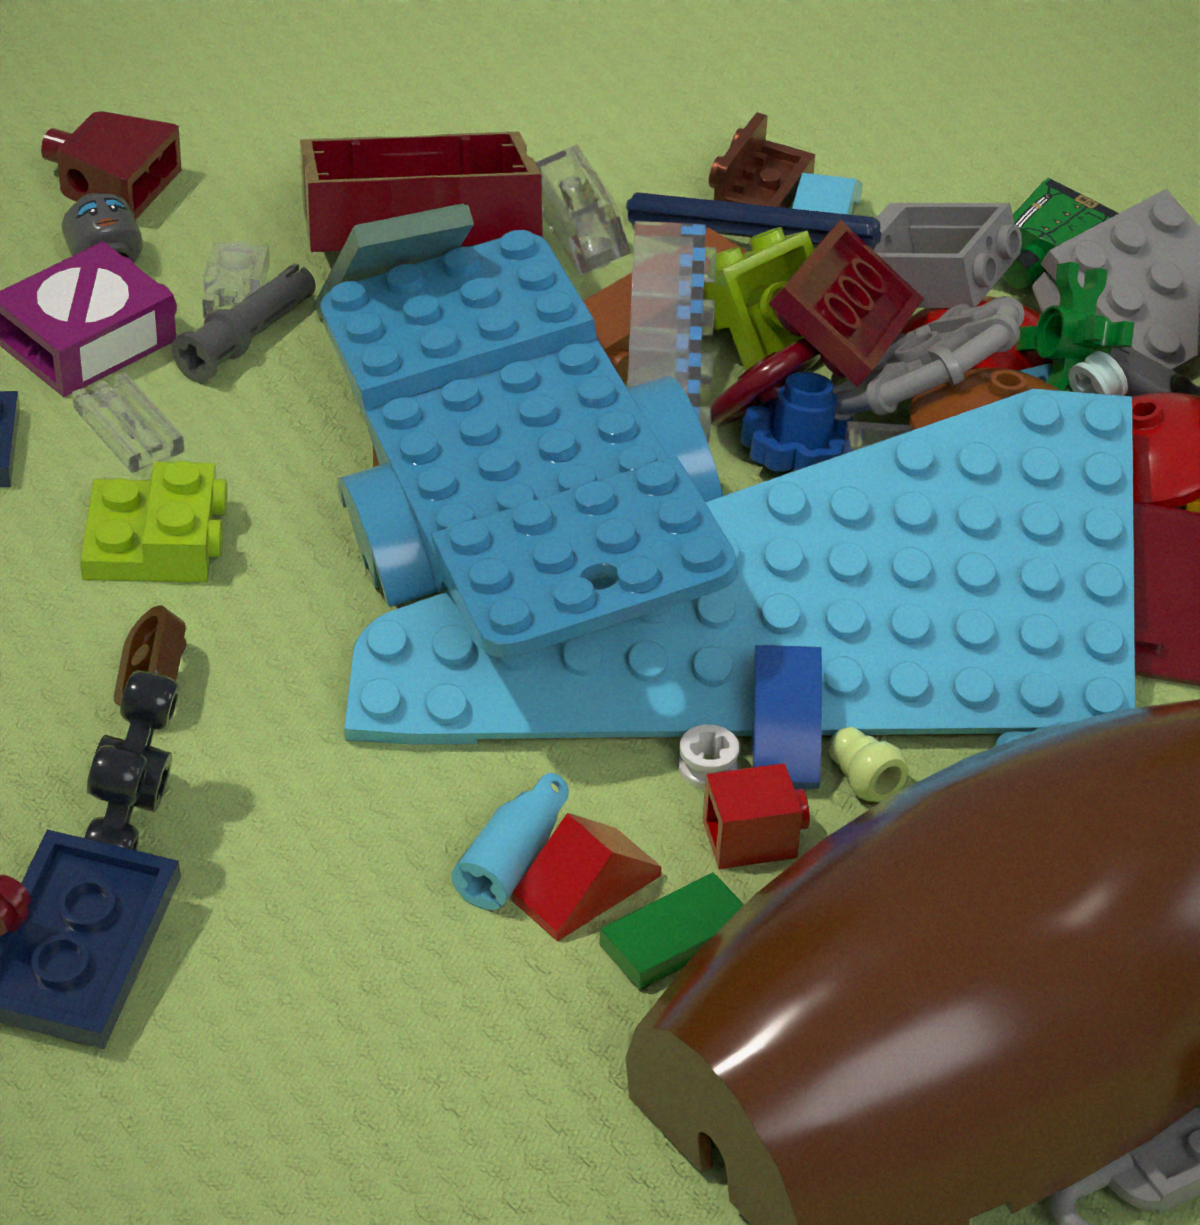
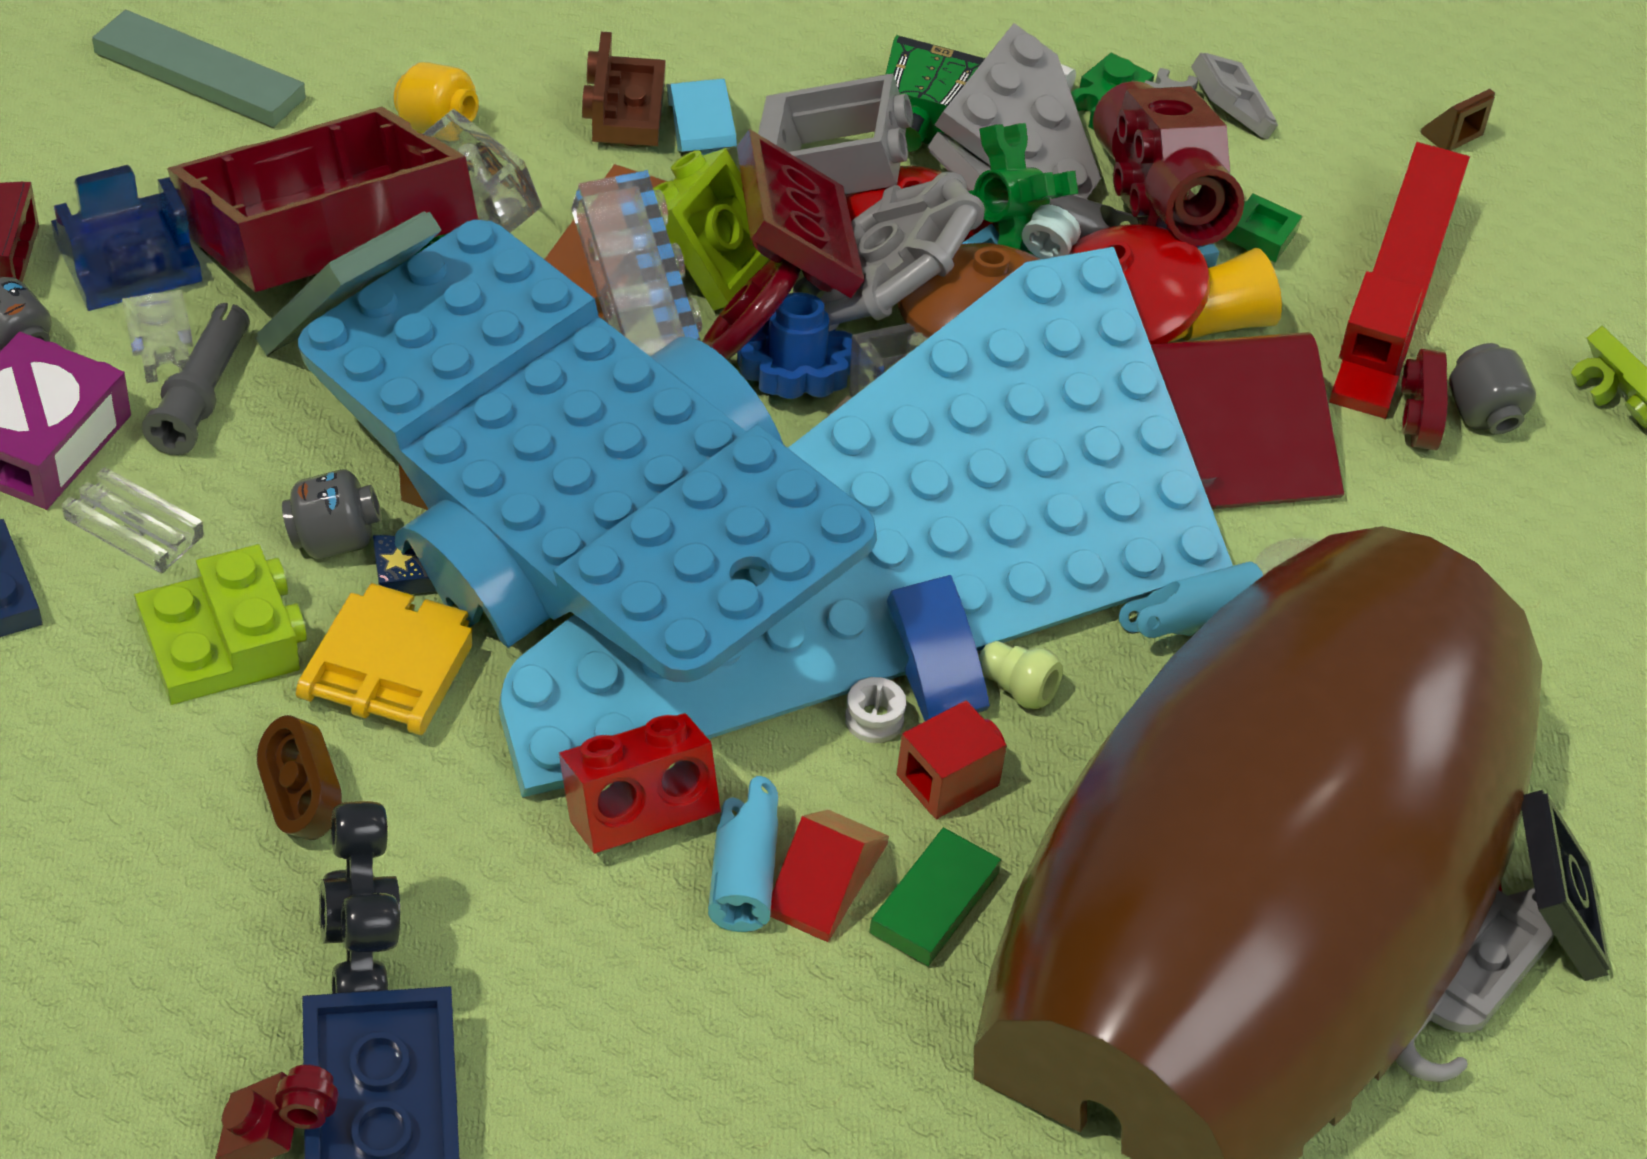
camera: 25 degrees left, 5 degrees up
(241, 193) = (124, 242): none -> clear blue panel
(284, 588) = (389, 657): none -> yellow plate
(294, 458) = (330, 514): none -> dark grey head
(332, 522) = (399, 569): none -> dark blue tile
(388, 72) = (199, 68): none -> sand green tile
(443, 765) = (642, 792): none -> red brick
(589, 129) = (431, 92): none -> yellow head
(746, 219) = (641, 145): dark blue axle -> none

